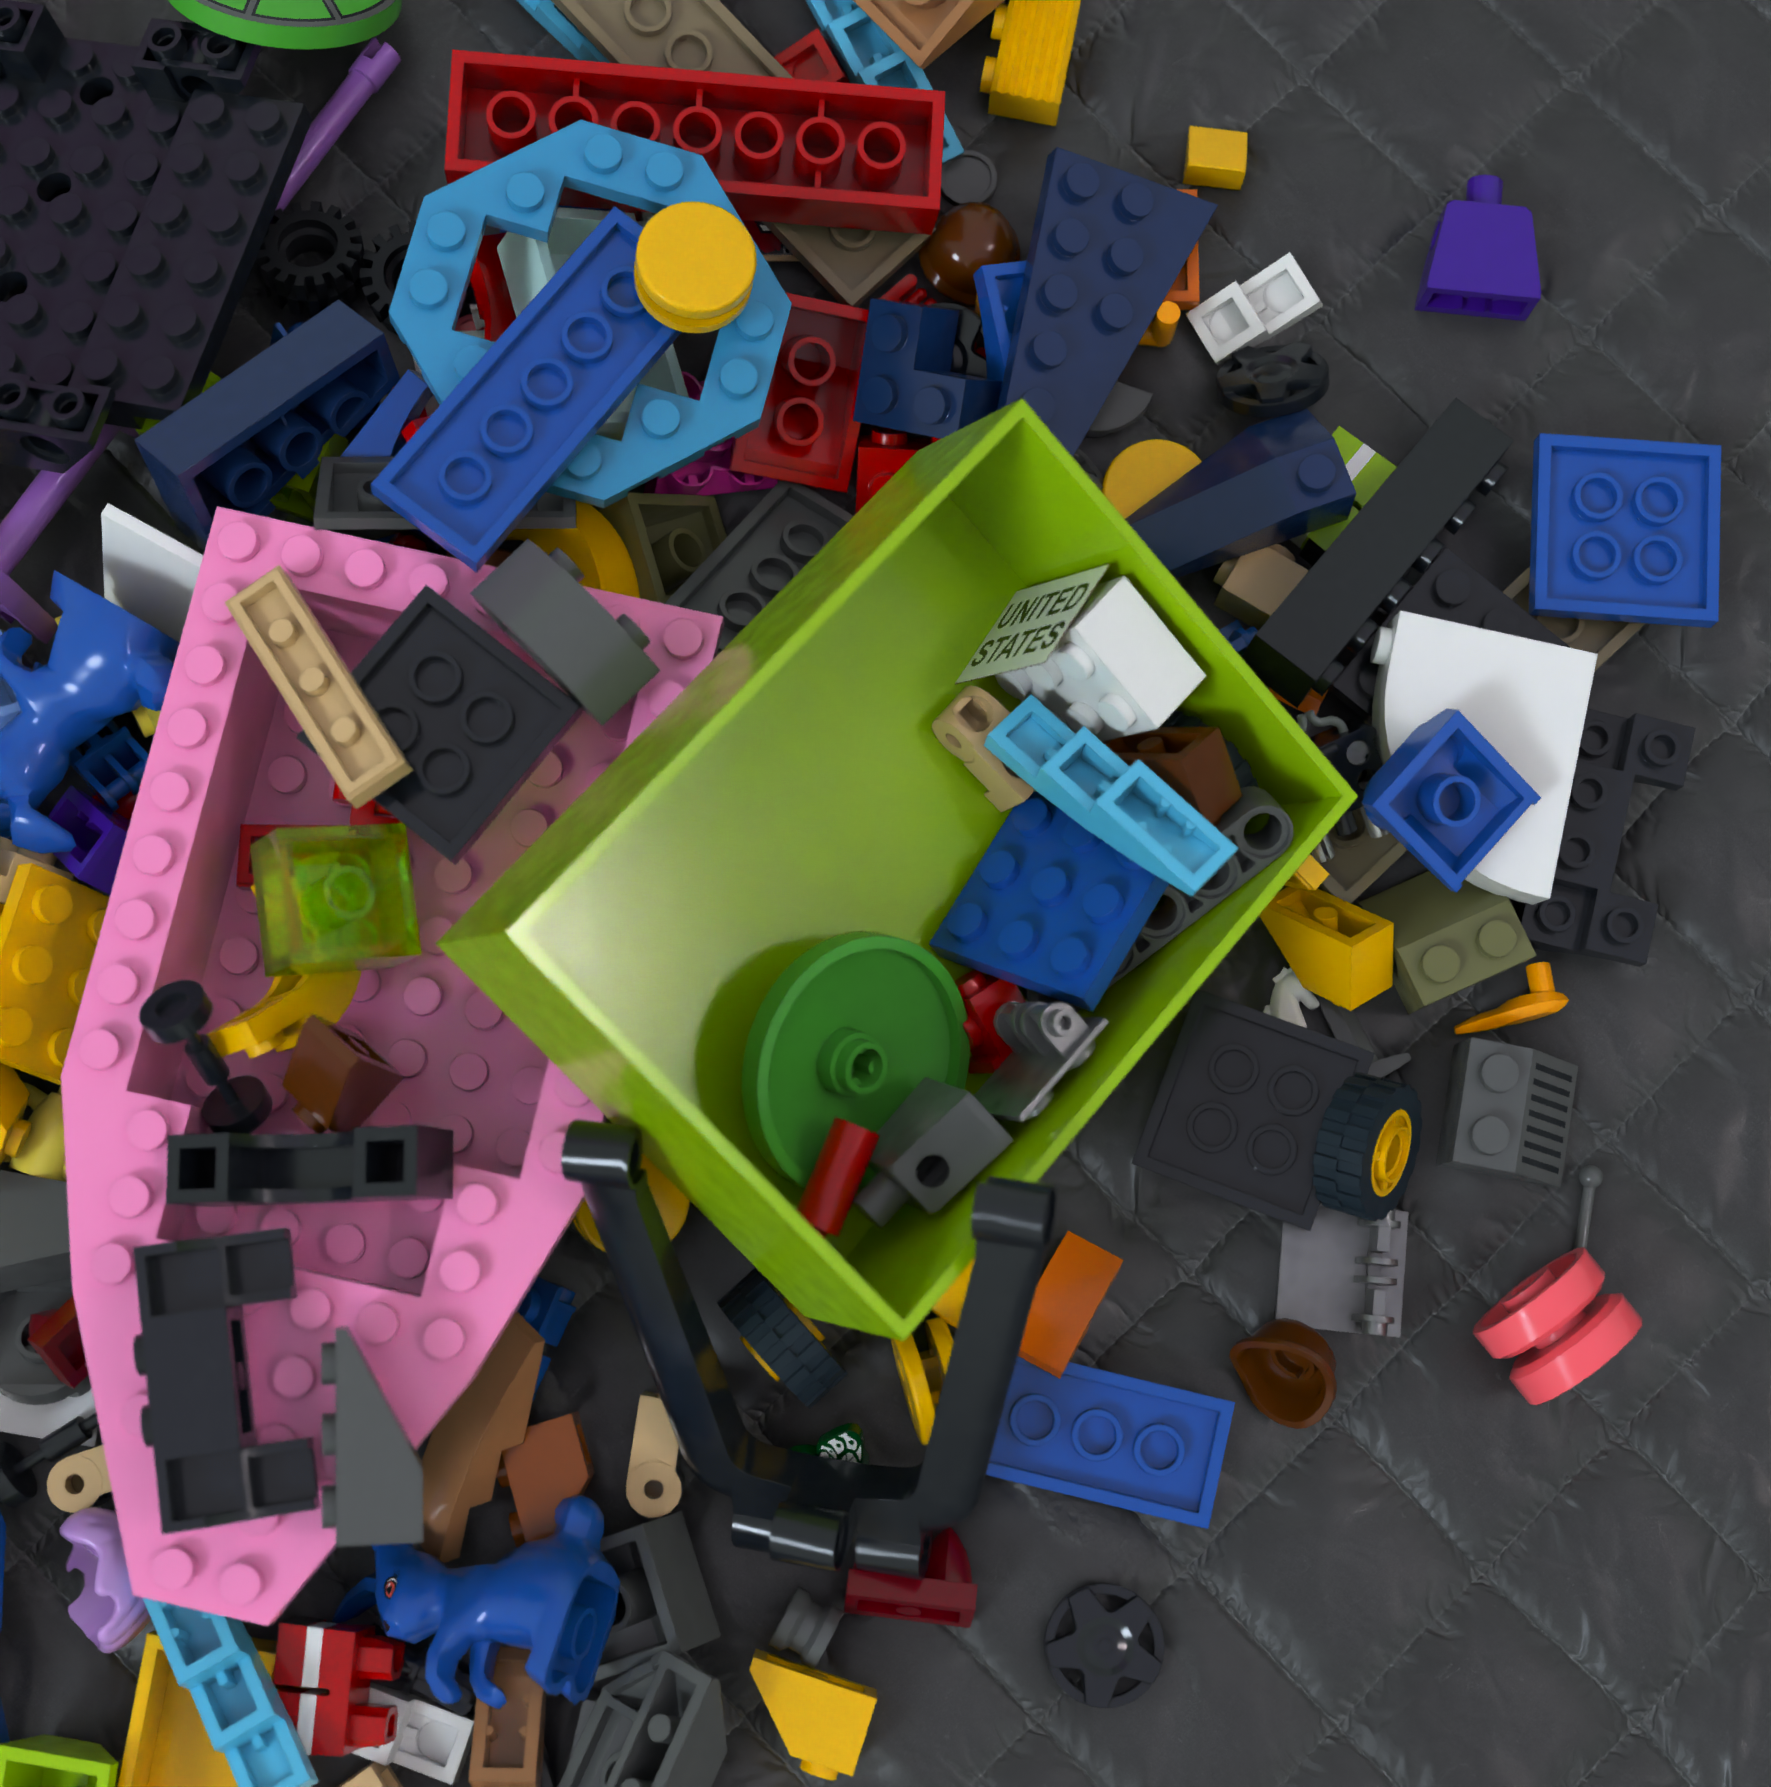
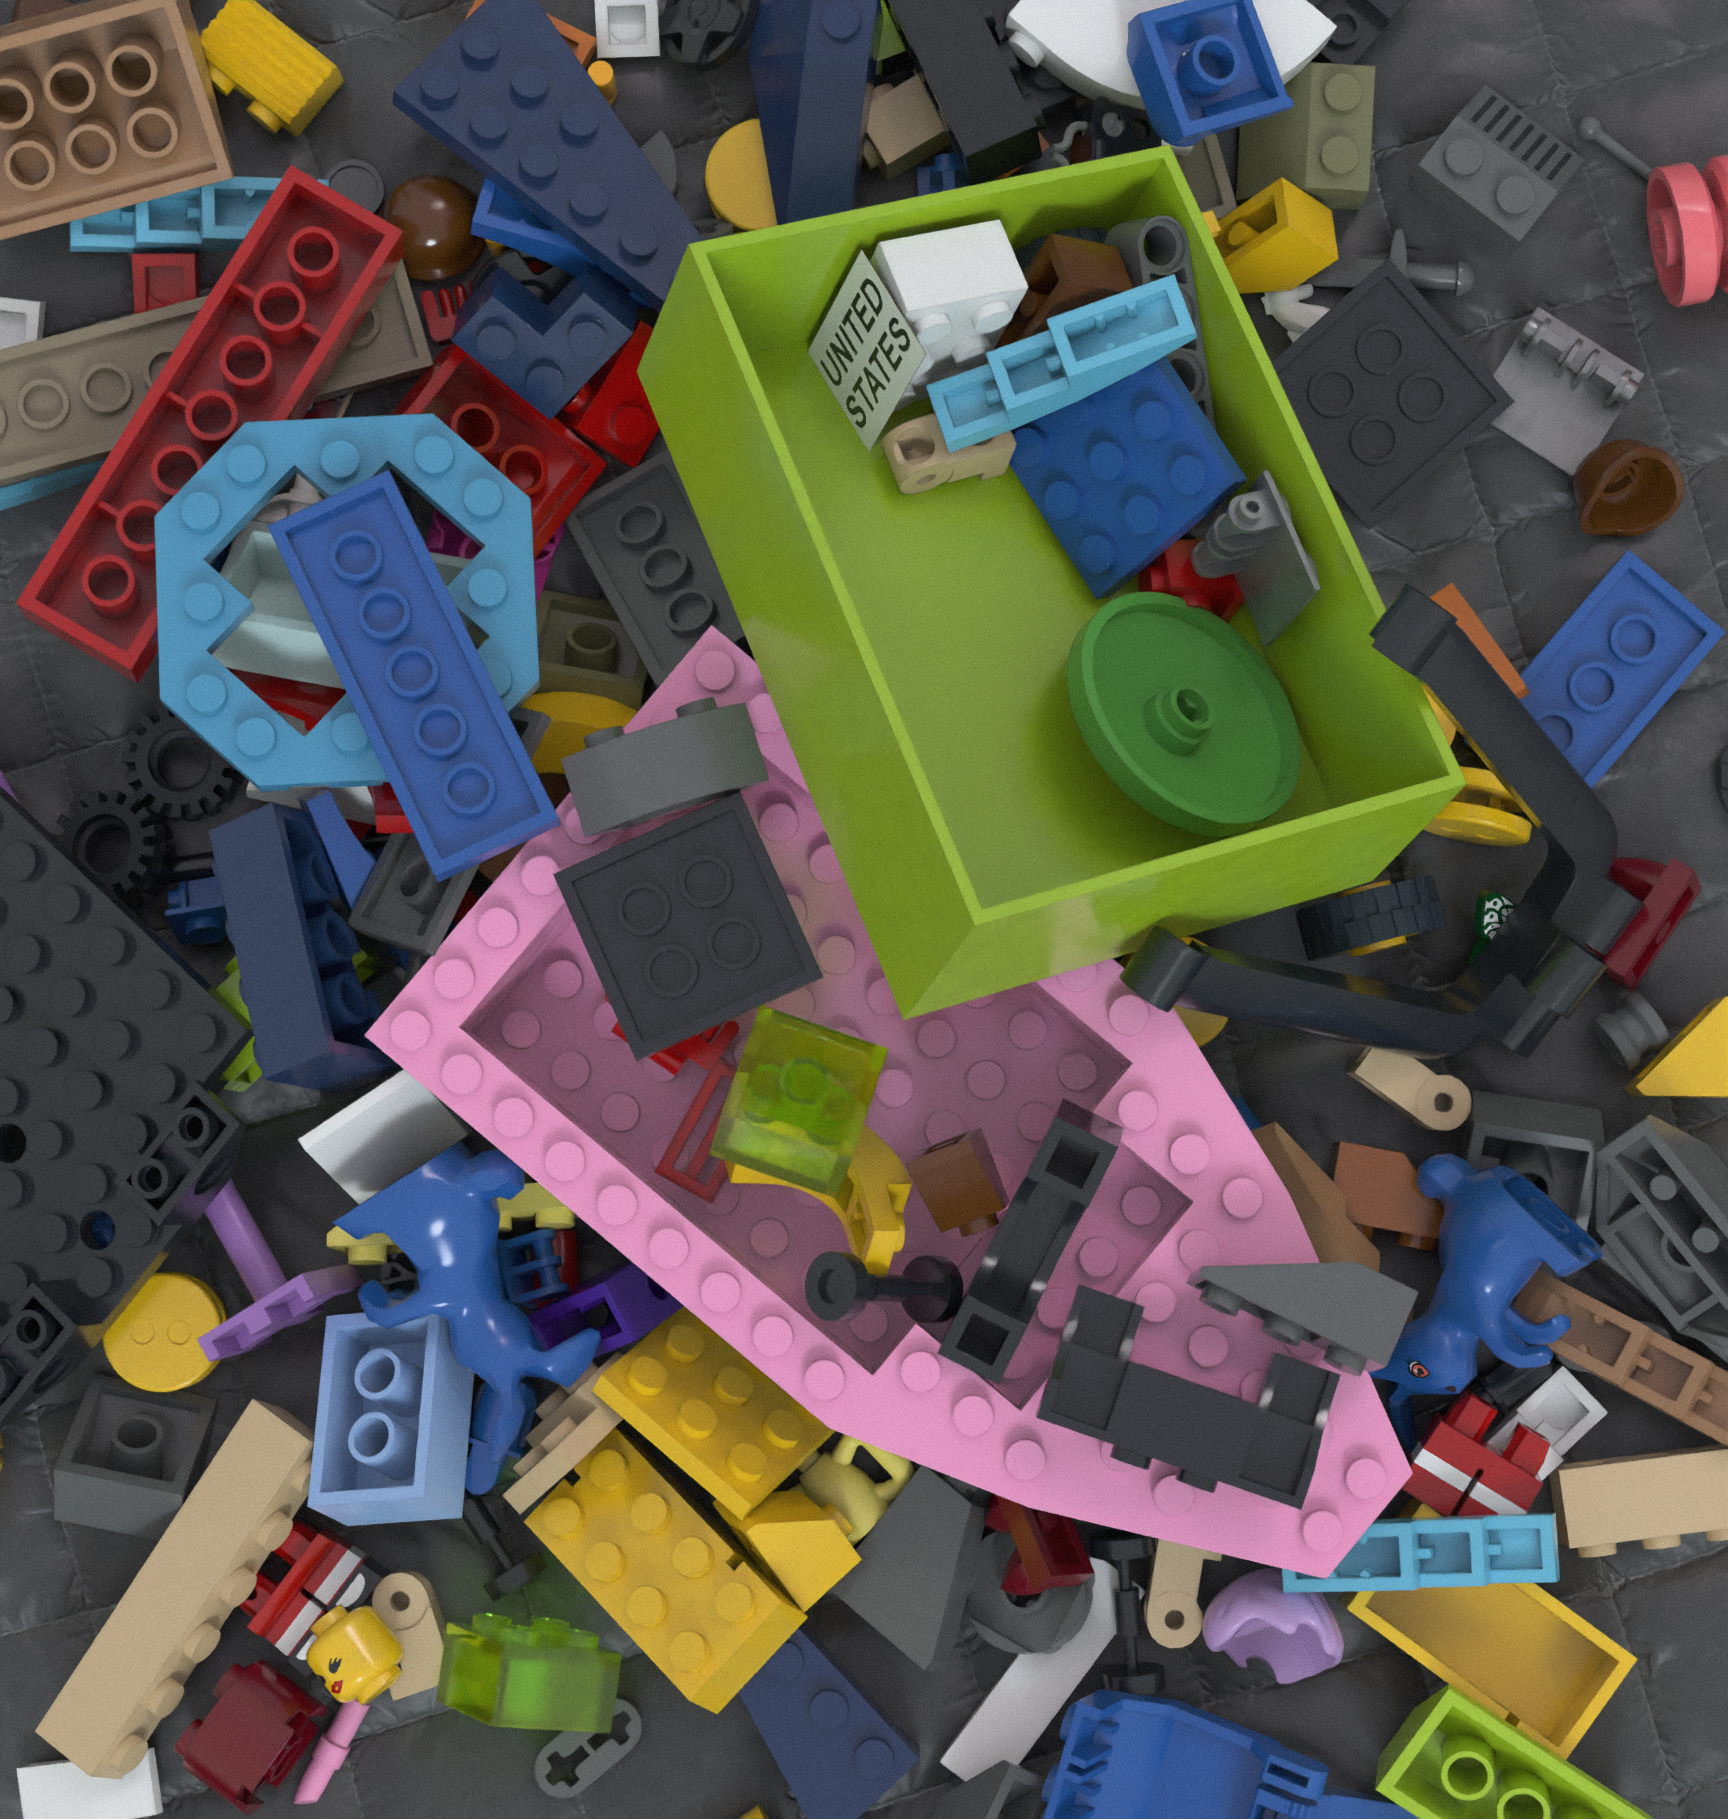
camera: 55 degrees left, 5 degrees up
(318, 687) = (600, 1017): tan tile -> none
(694, 267) = (372, 480): yellow head -> none
(836, 1176) = (1276, 777): red cylinder -> none
(929, 1151) = (1294, 688): dark grey torso -> none
(1367, 1146) = (1469, 308): black wheel -> none
(1539, 1003) = (1412, 87): light orange bar -> none

